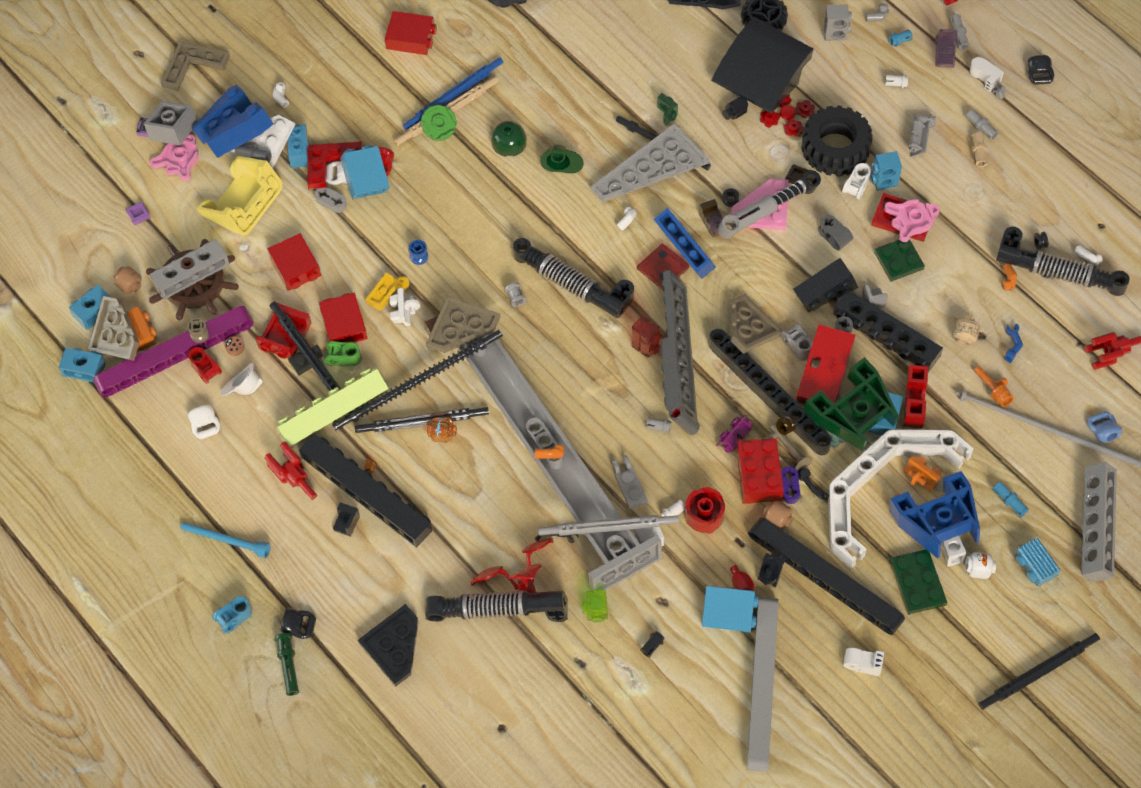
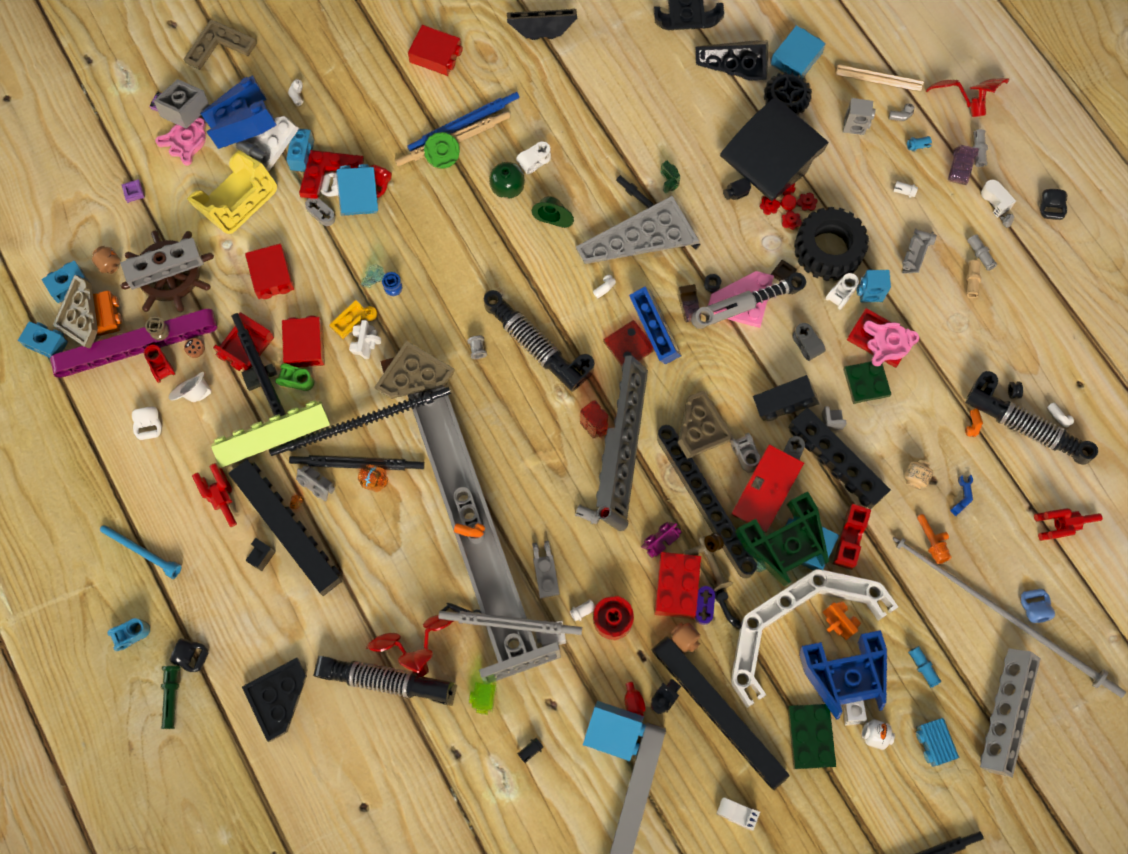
camera: 10 degrees right, 10 degrees up
(379, 444) = (308, 478): none -> light grey hinge
(397, 247) = (373, 275): none -> clear light blue plate
(531, 113) = (534, 157): none -> white piece

